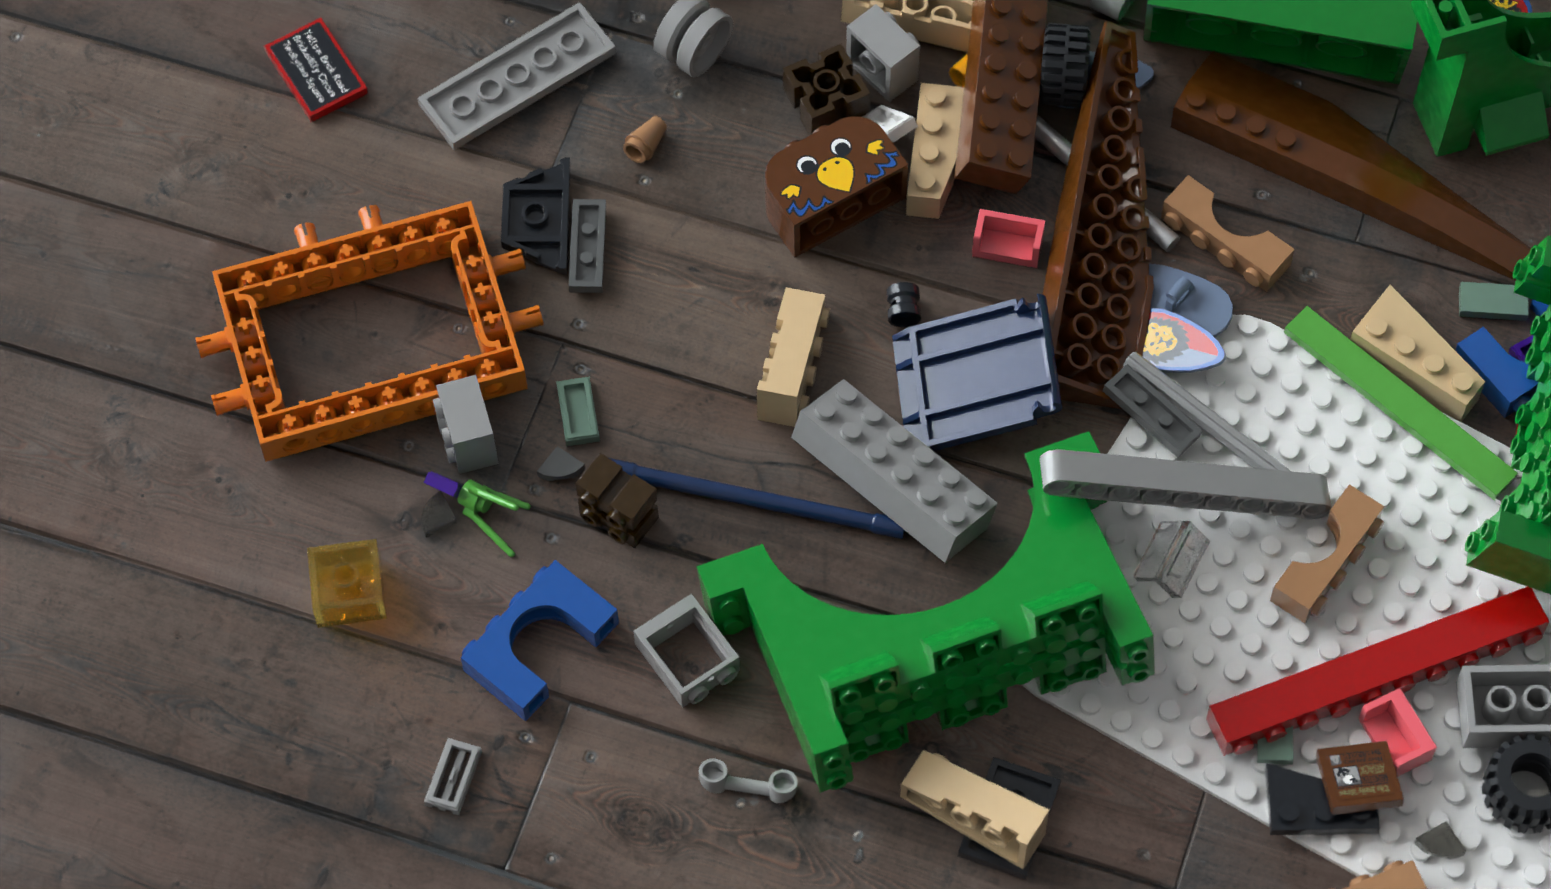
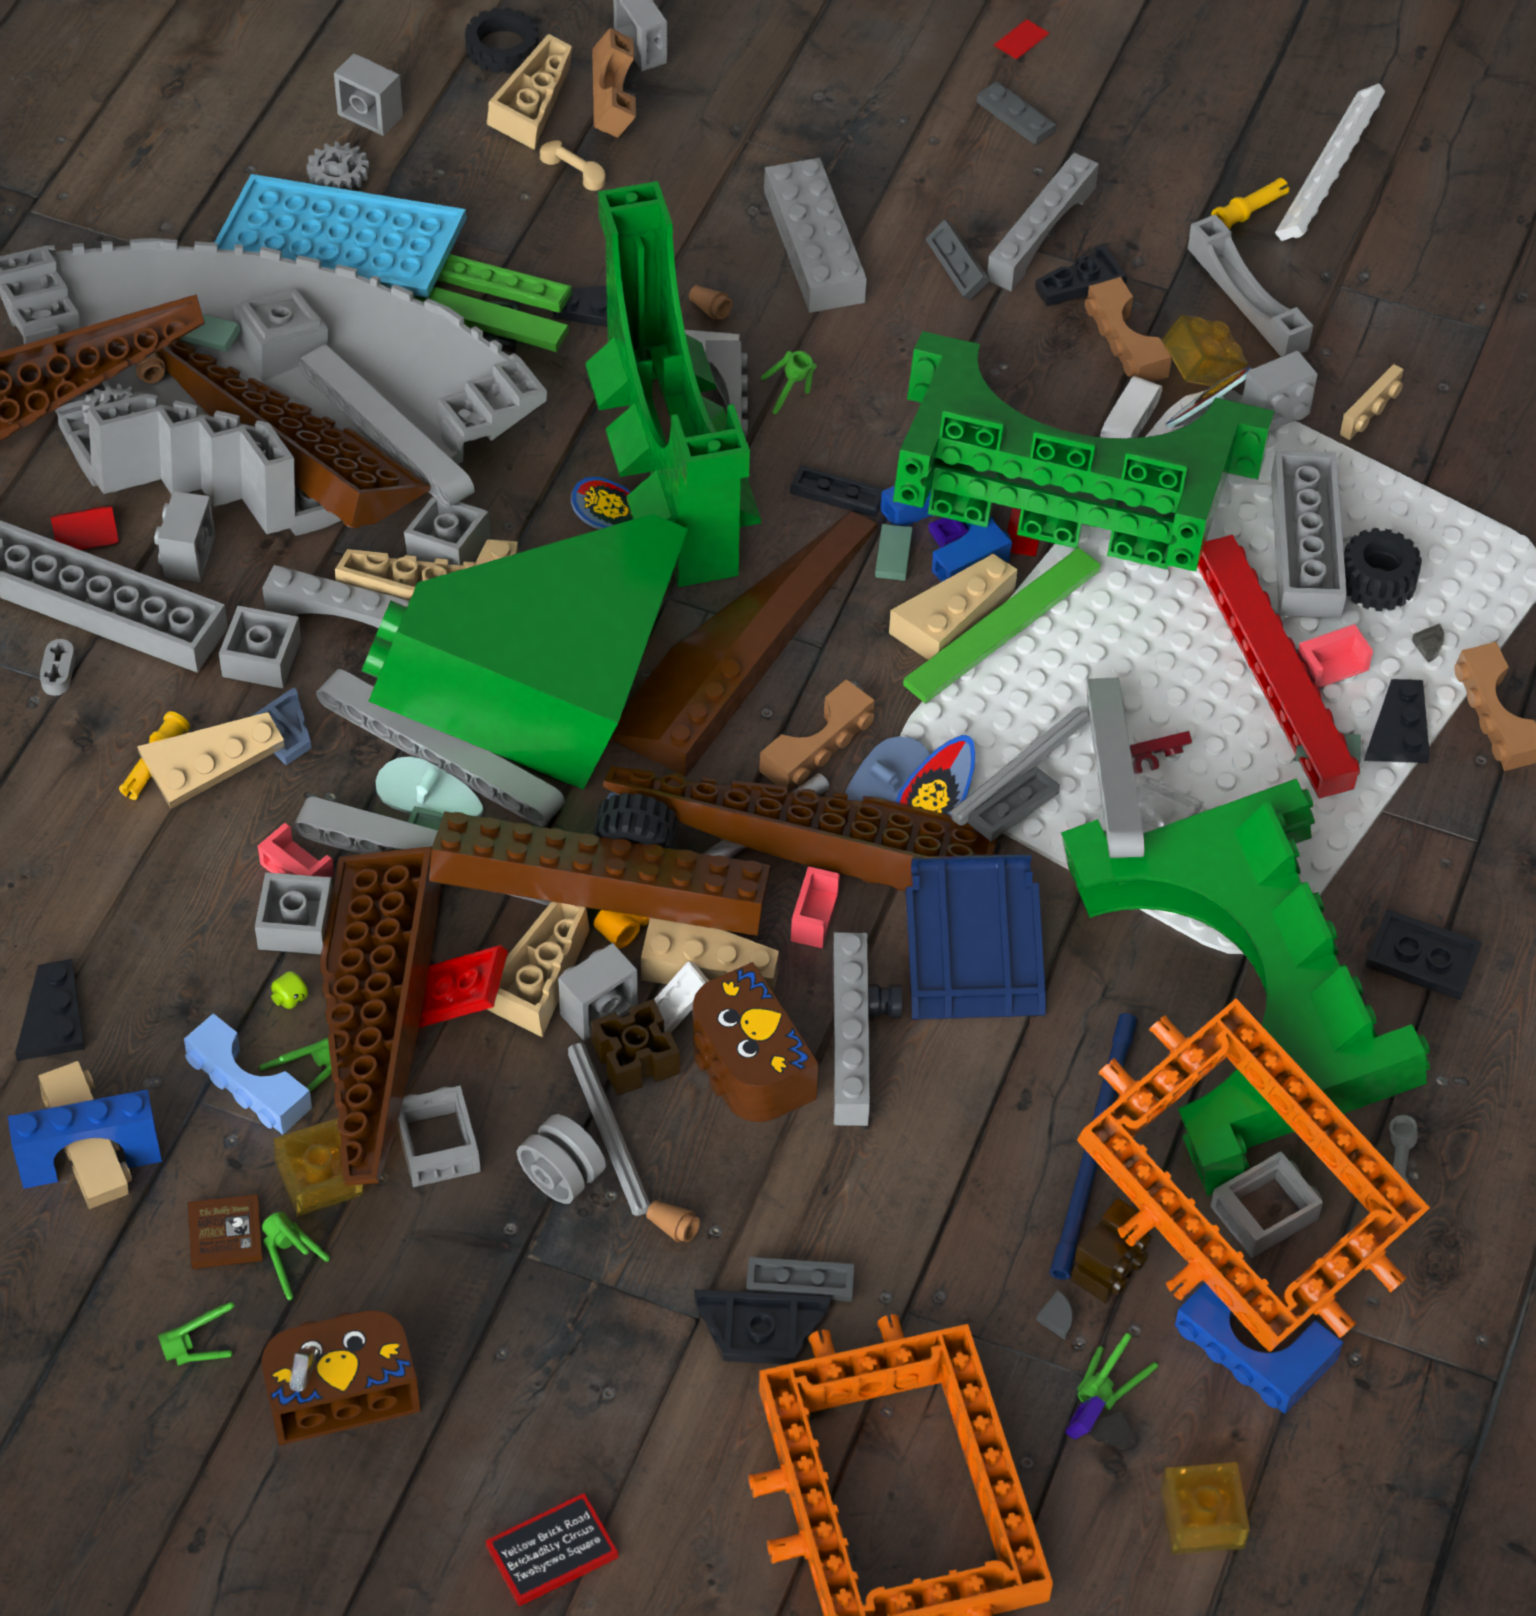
camera: 90 degrees left, 10 degrees down
(444, 803) = (1403, 1428): light grey tile -> none
(465, 425) = (1026, 1385): light grey brick -> none
(516, 75) = (583, 1342): light grey plate -> none
(578, 411) = (992, 1298): sand green tile -> none
(617, 541) = (1318, 1123): none -> orange brick
(733, 87) = (609, 1129): none -> light grey axle
(791, 357) = (945, 1095): tan wedge -> none
(894, 470) = (1075, 1014): light grey brick -> none
(931, 269) = (851, 1029): none -> light grey arch
(976, 807) = (1432, 960): tan wedge -> none
(1241, 541) = (1170, 745): none -> dark red plate
(1304, 585) = (1195, 704): medium nougat arch -> none
(1359, 777) = (1381, 684): reddish brown tile -> none

